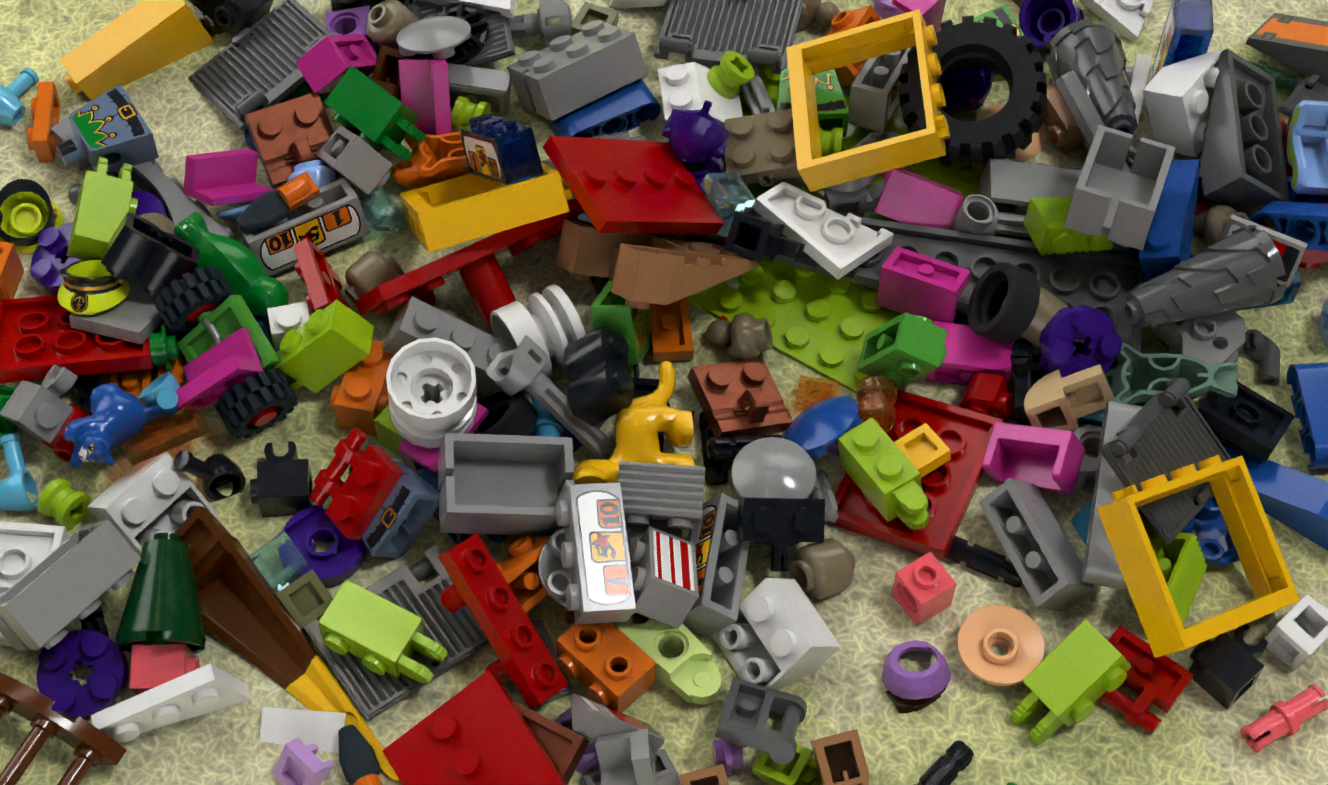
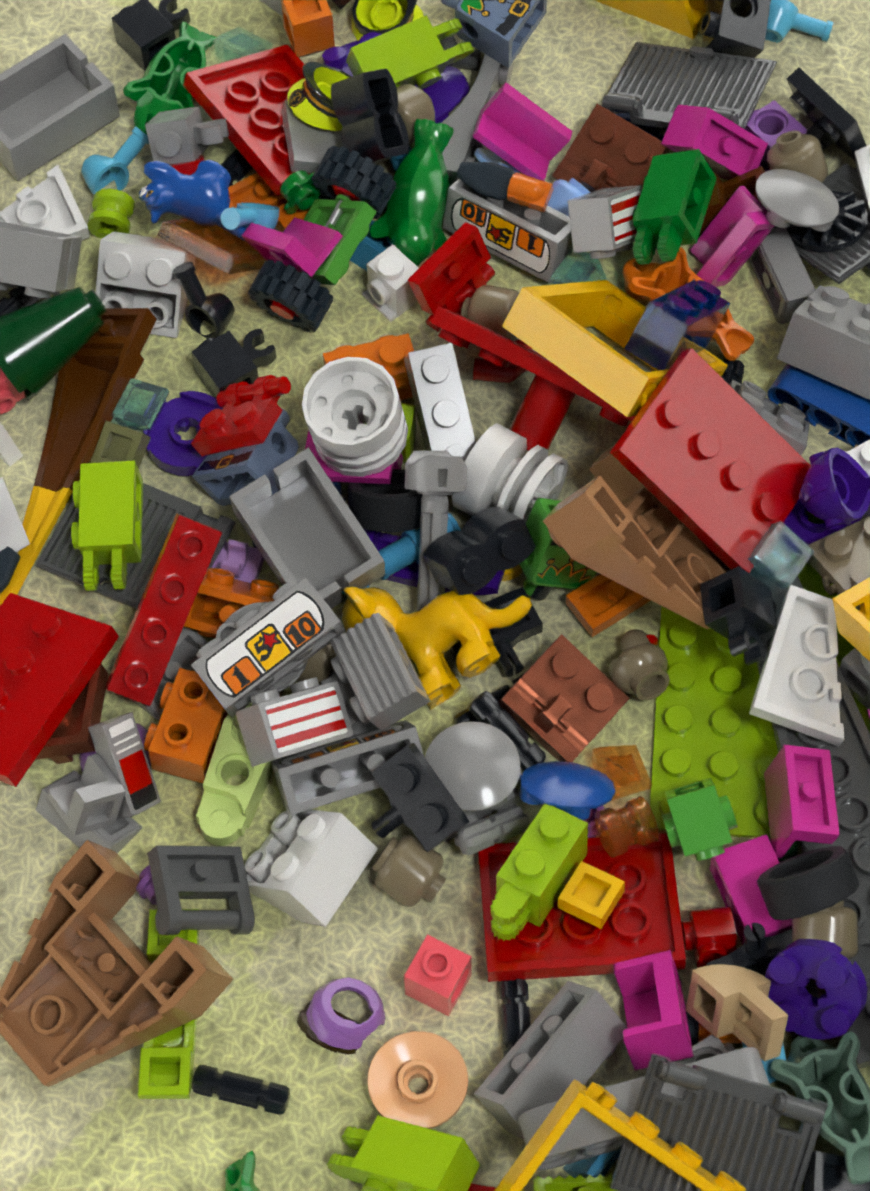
camera: 65 degrees right, 5 degrees up
(324, 347) = (374, 310): lime hinge -> none
(465, 110) = (746, 291): lime wheel -> none

